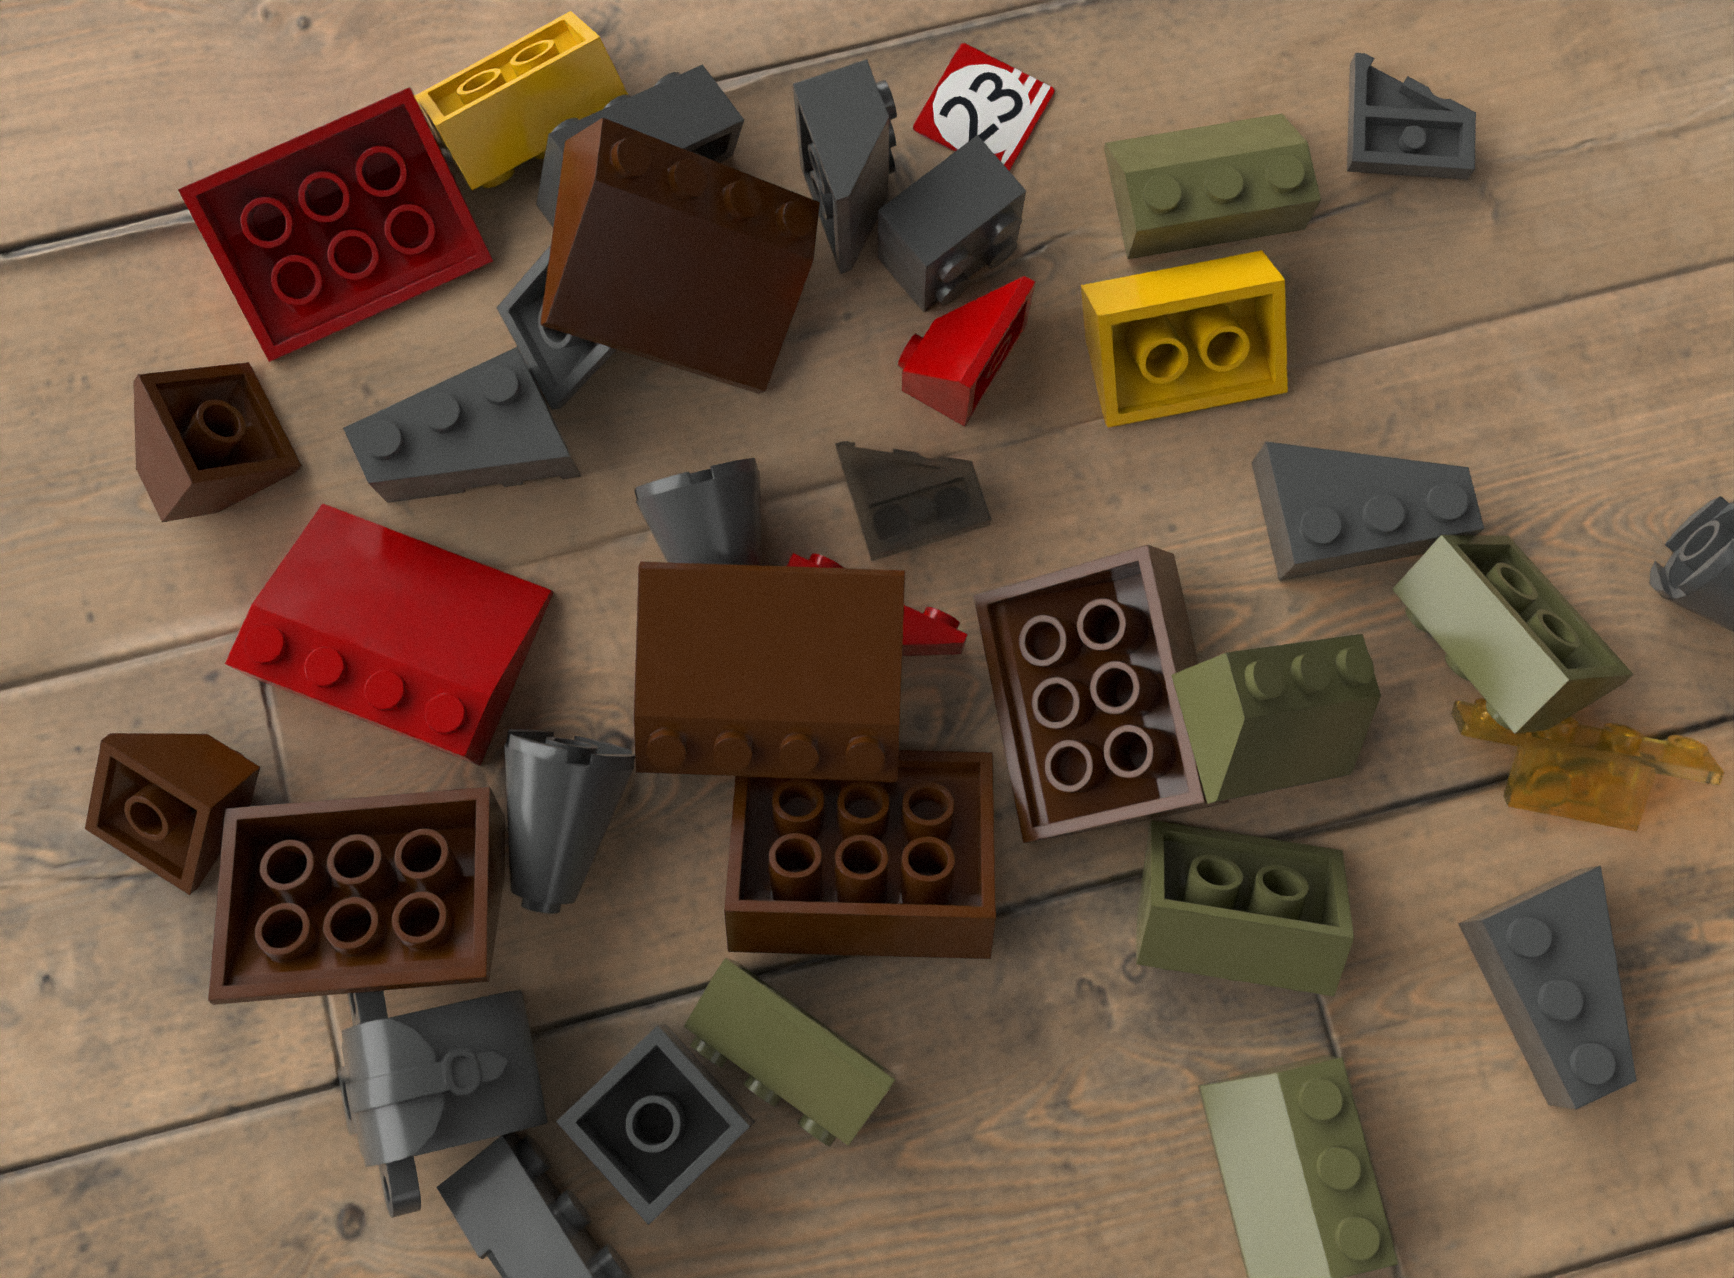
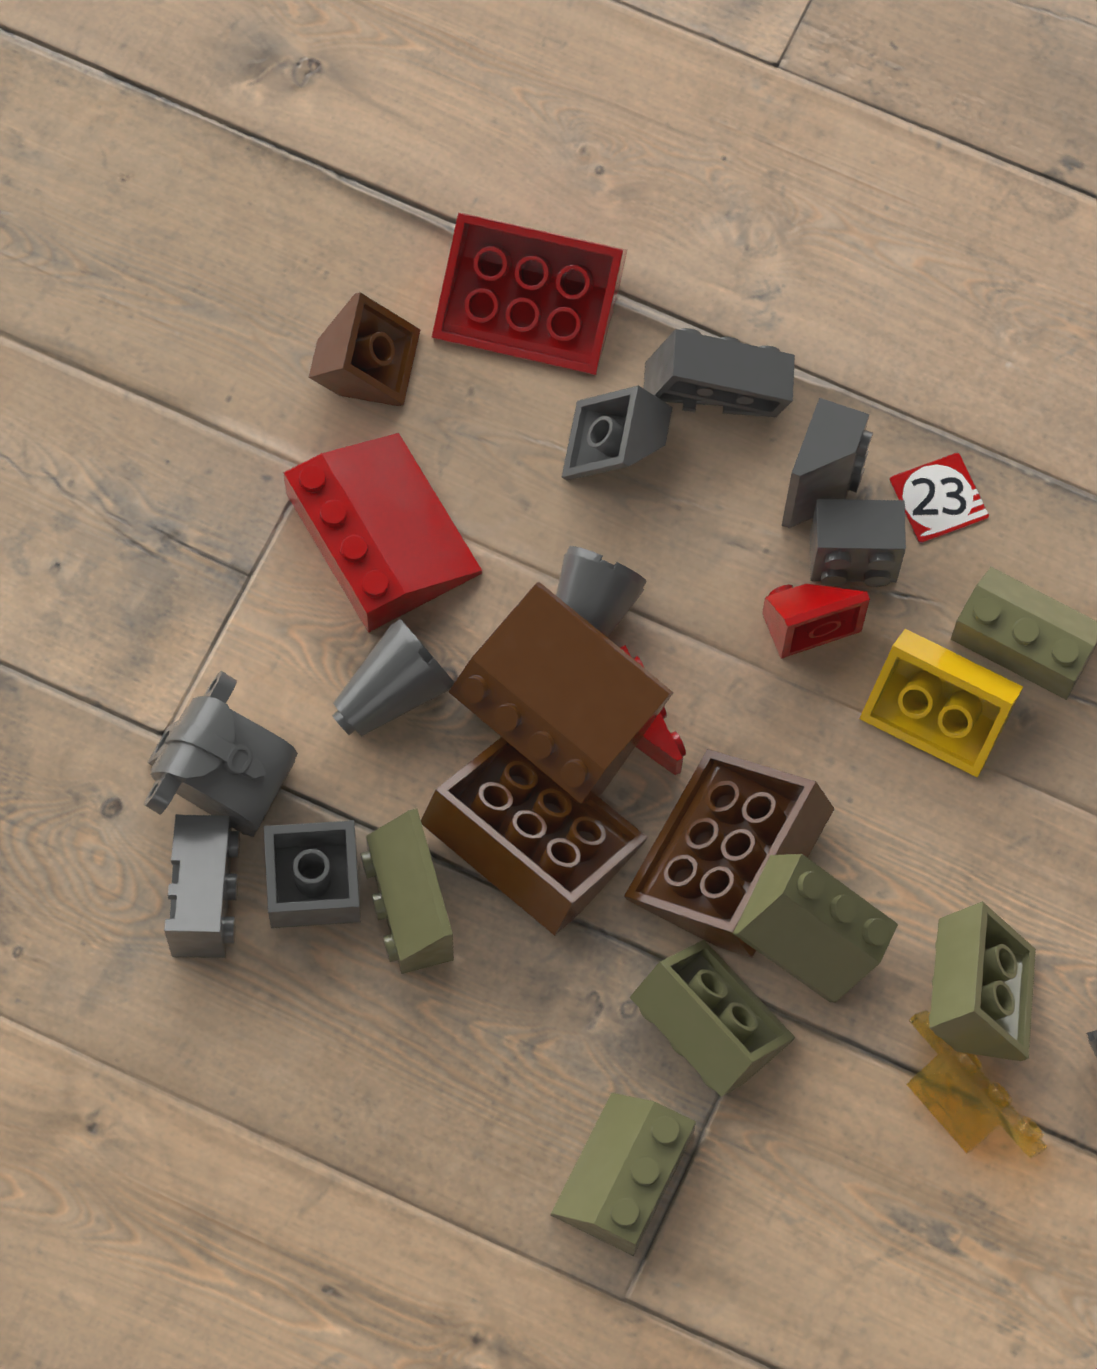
camera: 35 degrees right, 10 degrees down
(167, 800) = (195, 522): reddish brown slope -> none
(357, 895) = (260, 636): reddish brown slope -> none
(463, 435) = (503, 452): dark grey wedge -> none
(512, 99) = (677, 295): yellow slope -> none
(675, 256) = (691, 445): reddish brown slope -> none
(910, 498) = (715, 670): clear smoke wing -> none
(1356, 508) = (956, 861): dark grey wedge -> none
(1559, 985) = (849, 1186): dark grey wedge -> none

